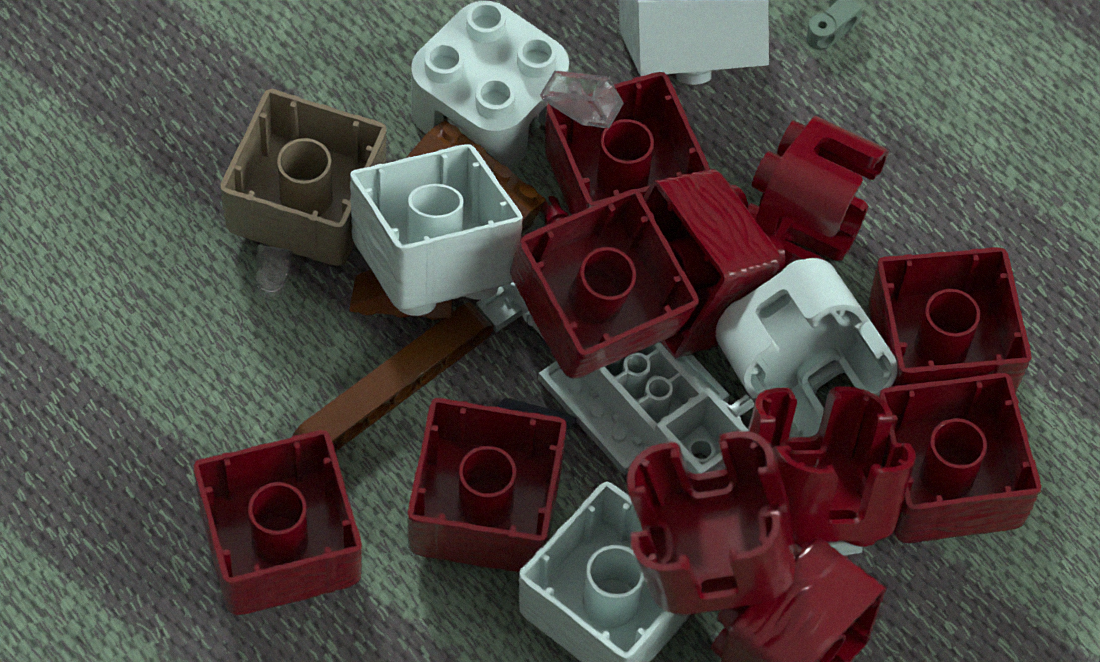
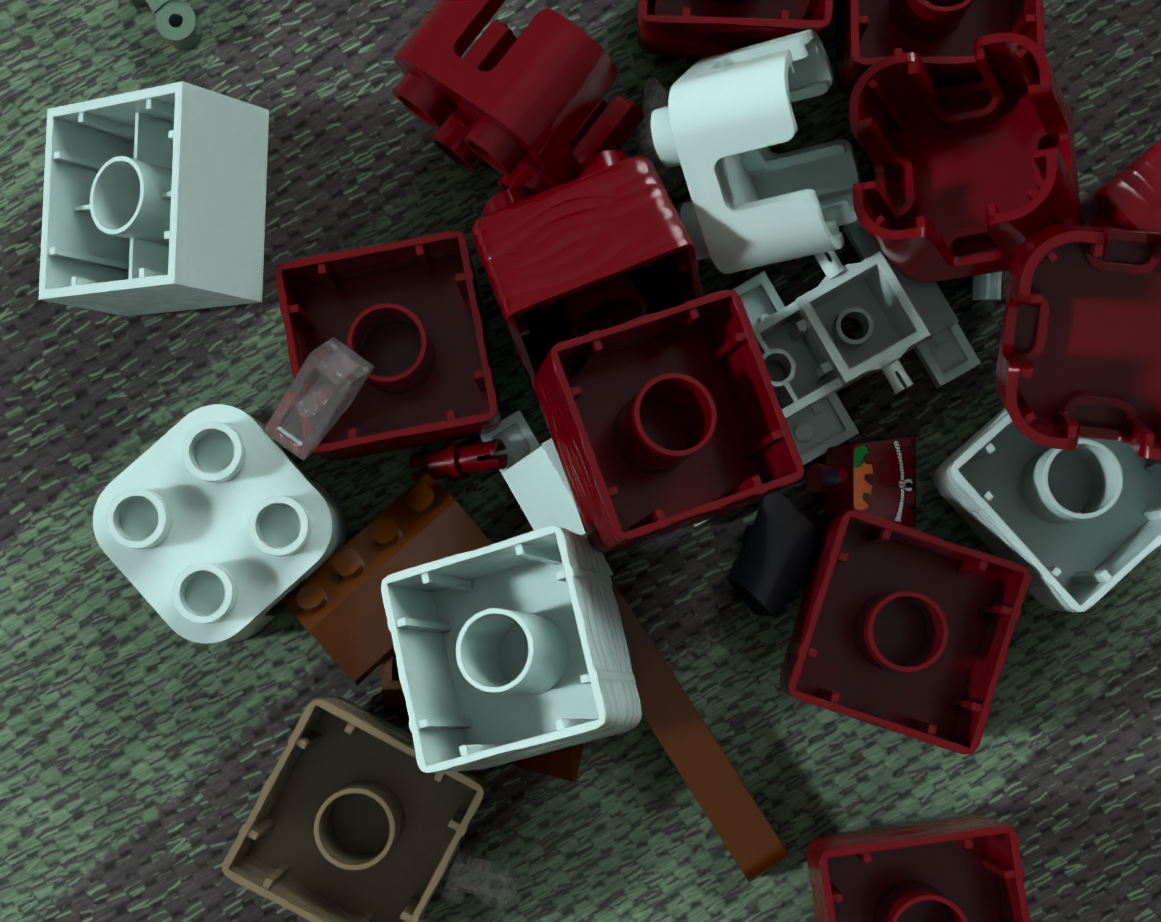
camera: 75 degrees left, 25 degrees up
(587, 469) = (869, 479): none -> dark red torso

